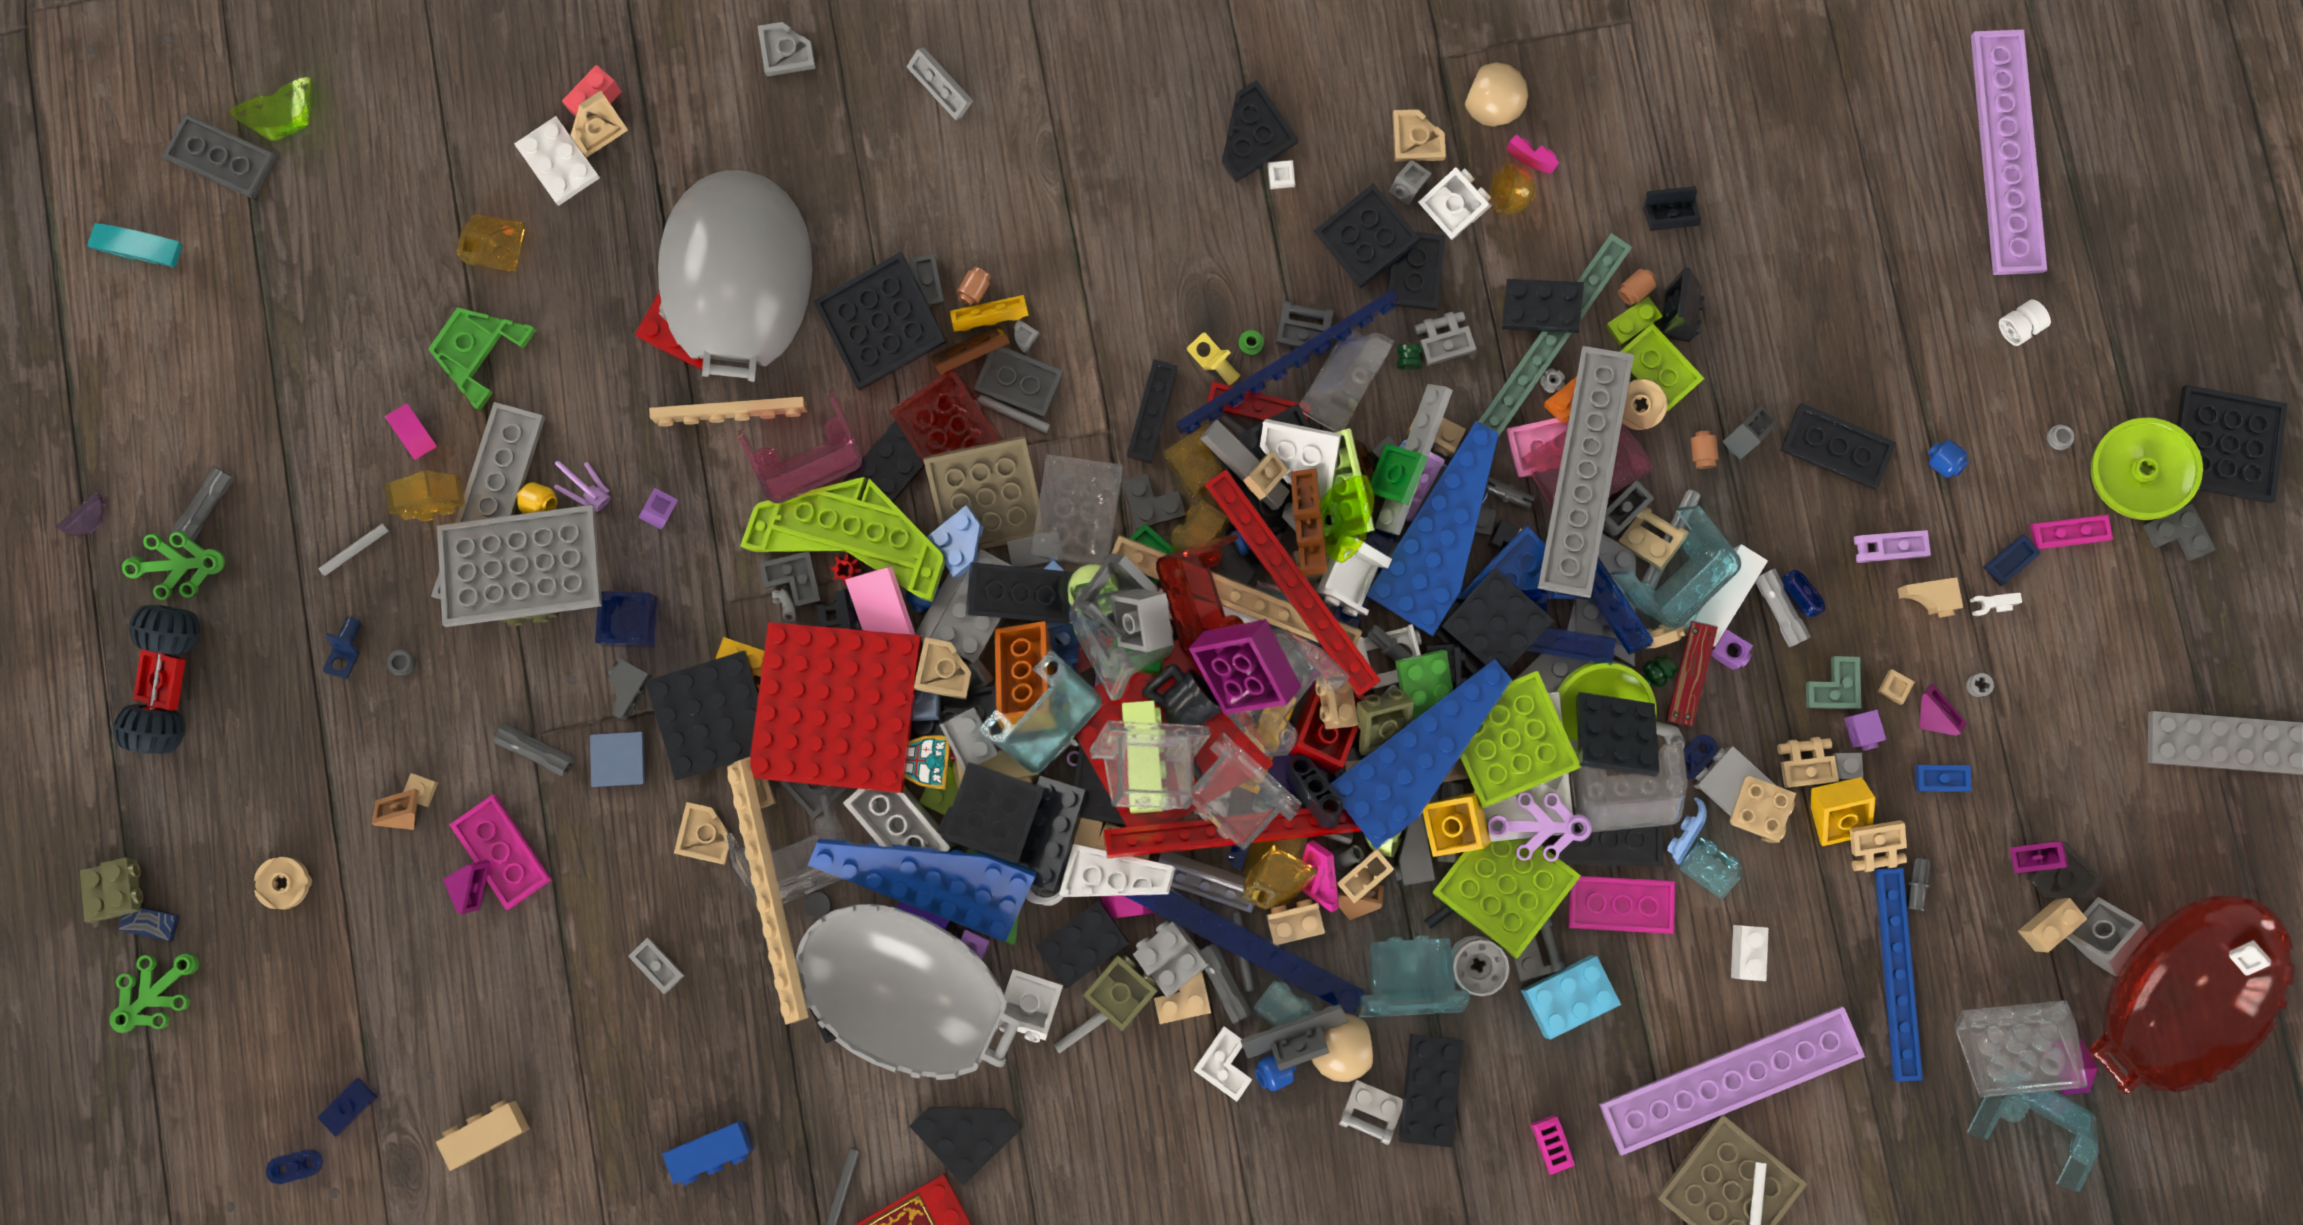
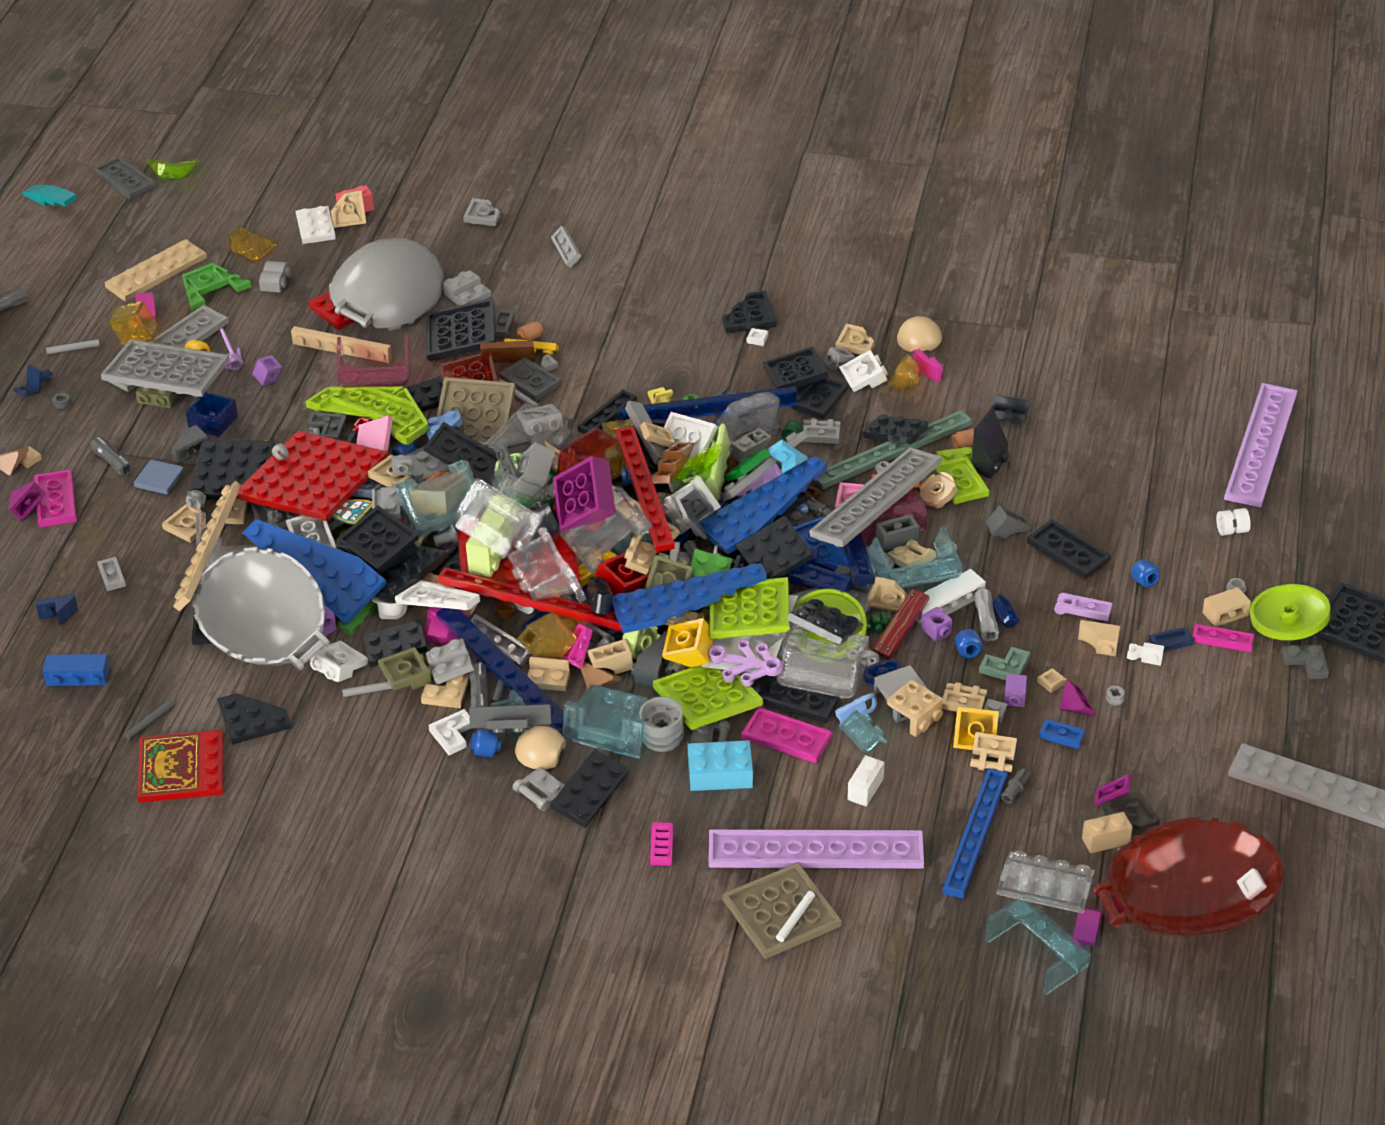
camera: 25 degrees right, 40 degrees down
(380, 344) = (155, 270): none -> tan plate
(560, 301) = (274, 276): none -> light grey brick
(629, 1053) = (59, 606): none -> dark blue slope
(694, 791) = (195, 499): none -> light grey plate
(776, 690) = (277, 448): none -> light grey hinge
(842, 226) = (465, 288): none -> light grey plate
(953, 659) = (401, 465): none -> light grey bracket
(1089, 490) = (540, 419): none -> light grey plate
(1367, 603) = (693, 506): none -> dark grey bracket
(1372, 411) = (750, 444): none -> light grey slope
(1451, 448) = (787, 455): none -> medium azure slope
(1704, 450) = (971, 525): nougat brick -> none
(1781, 670) = (968, 643): none -> blue head
(2063, 481) = (1226, 607): none -> tan brick

